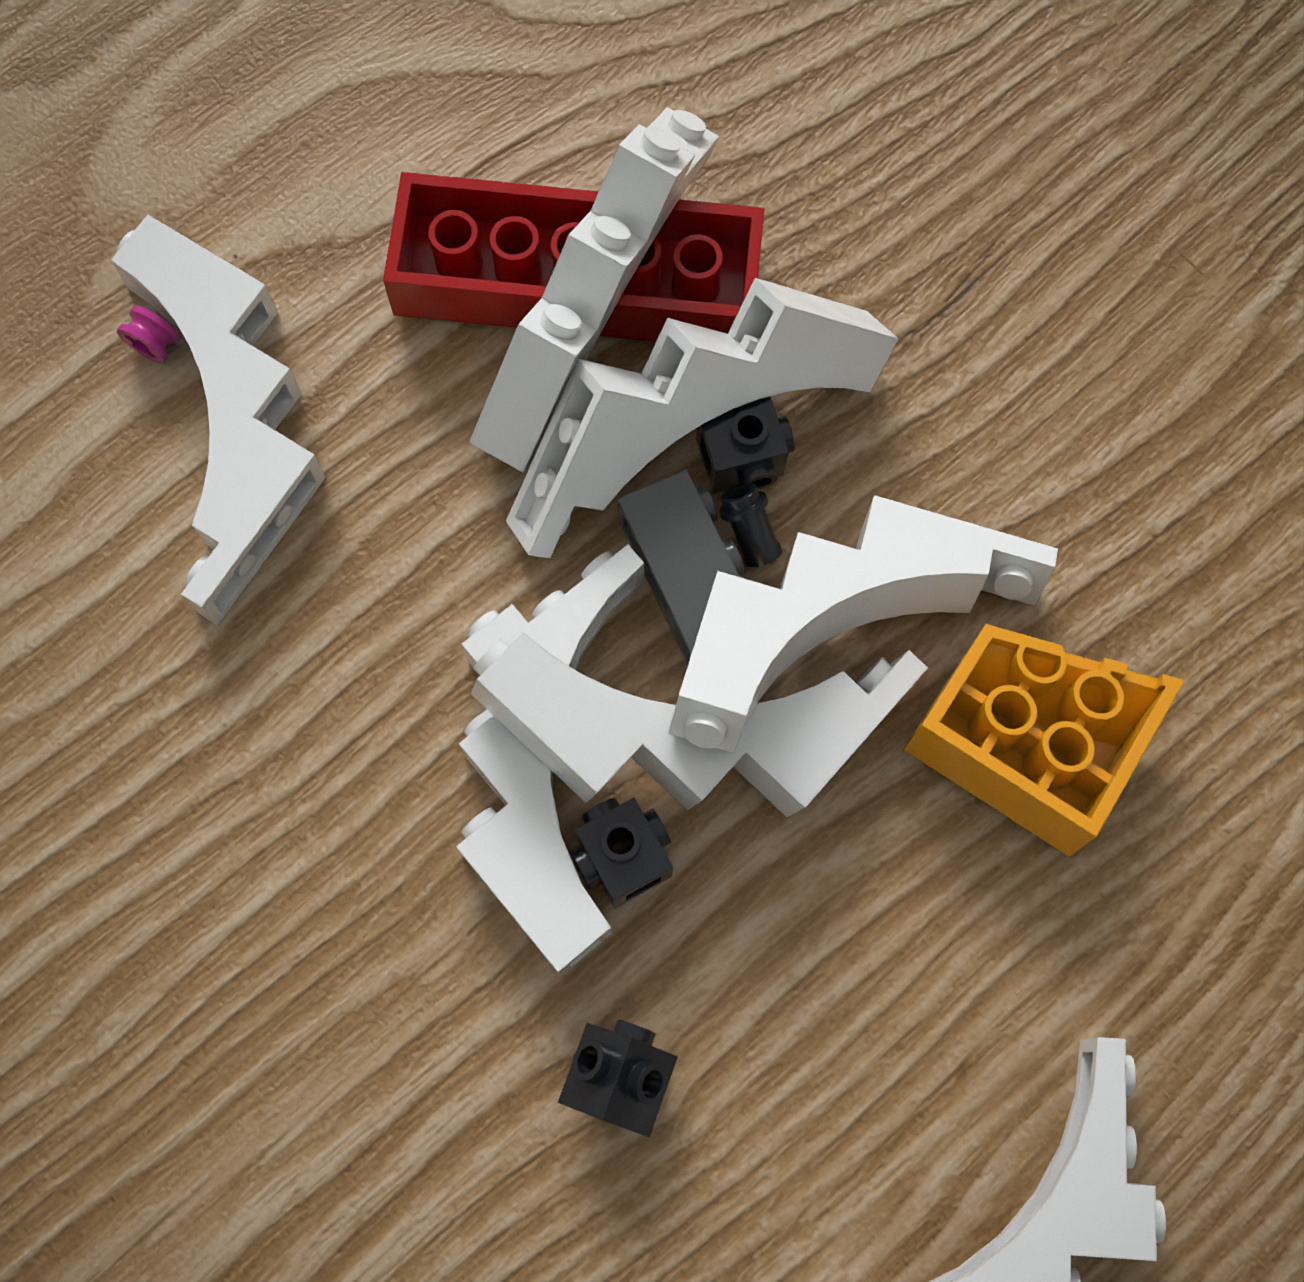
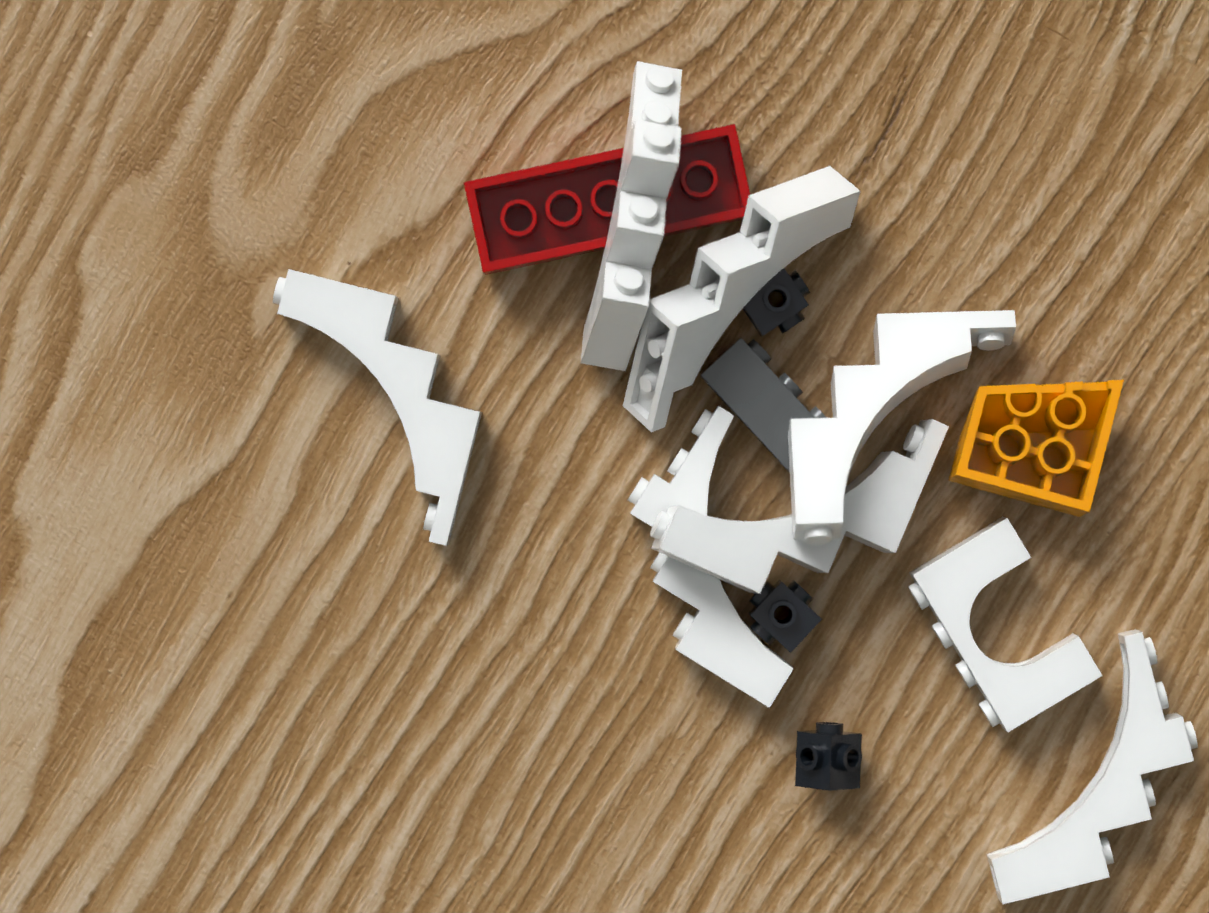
camera: 15 degrees left, 15 degrees up
(148, 334) = (318, 352): dark pink bush -> none
(746, 512) = (790, 351): black pin -> none
(907, 1065) = (1010, 689): none -> white arch

